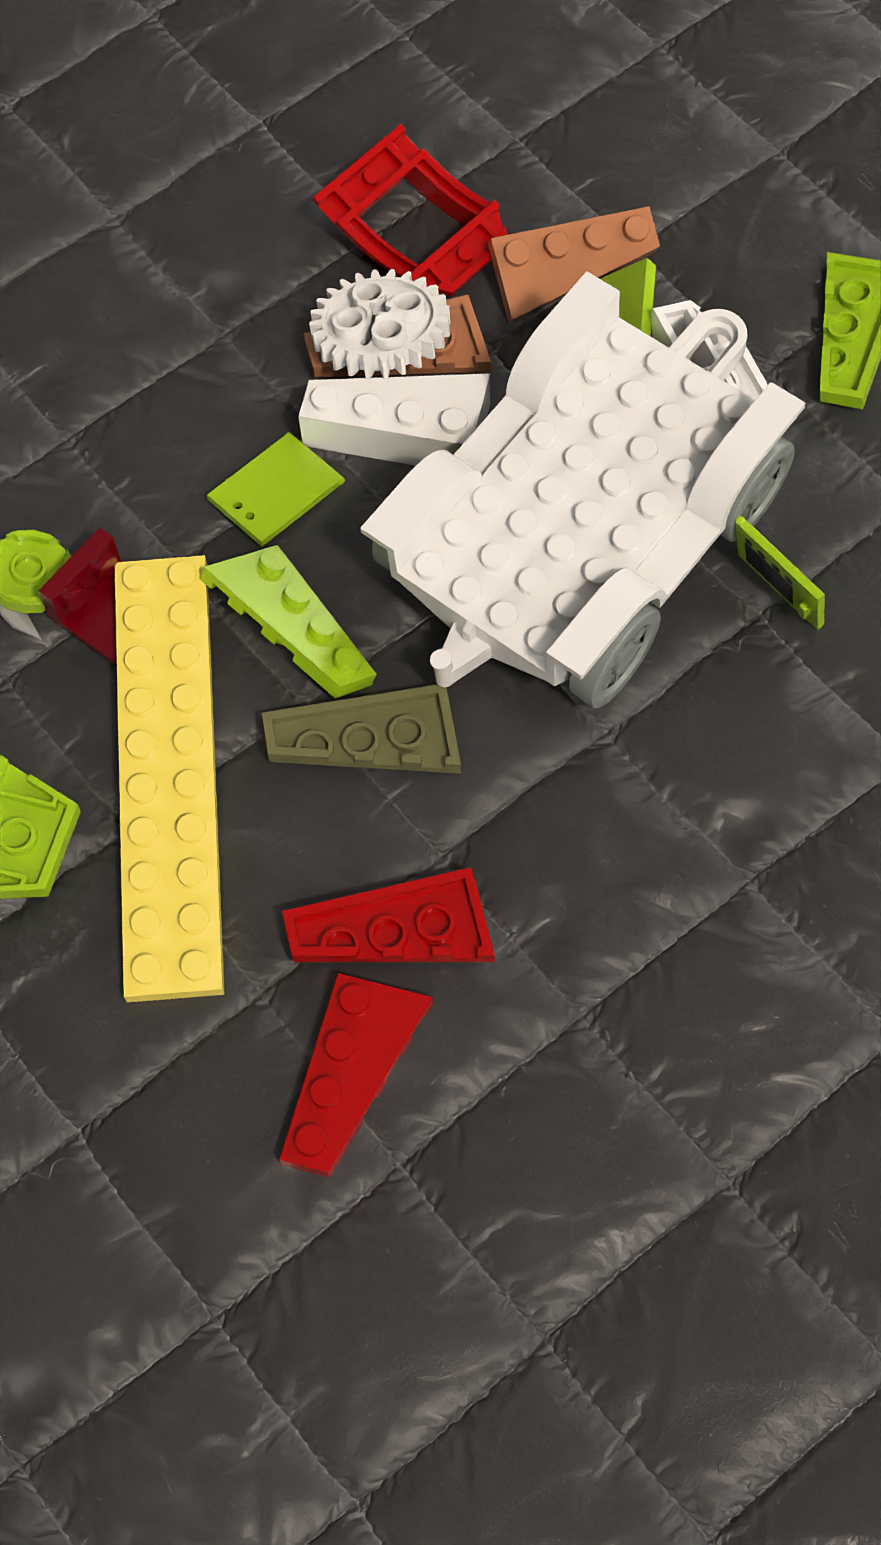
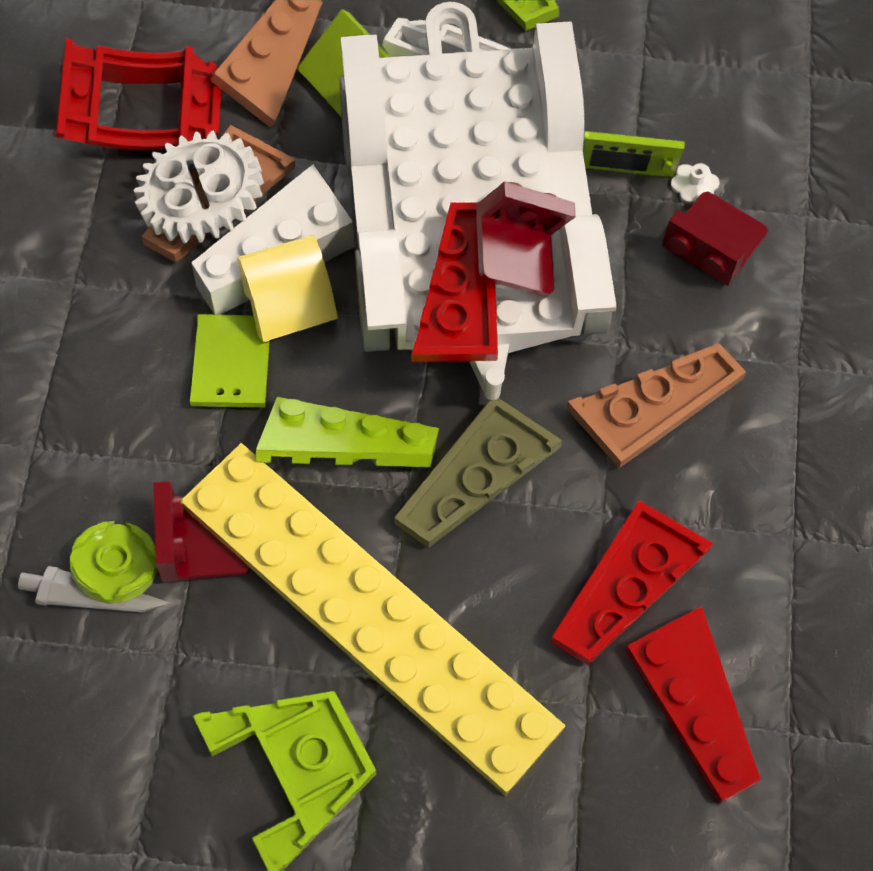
camera: 50 degrees left, 0 degrees up
(364, 457) = (287, 288): none -> light yellow slope
(464, 573) = (460, 305): none -> red wing
(558, 555) = (516, 236): none -> dark red bracket
(568, 802) = (645, 409): none -> nougat wing
(789, 707) = (714, 236): none -> dark red bracket
(830, 651) = (692, 181): none -> white plant

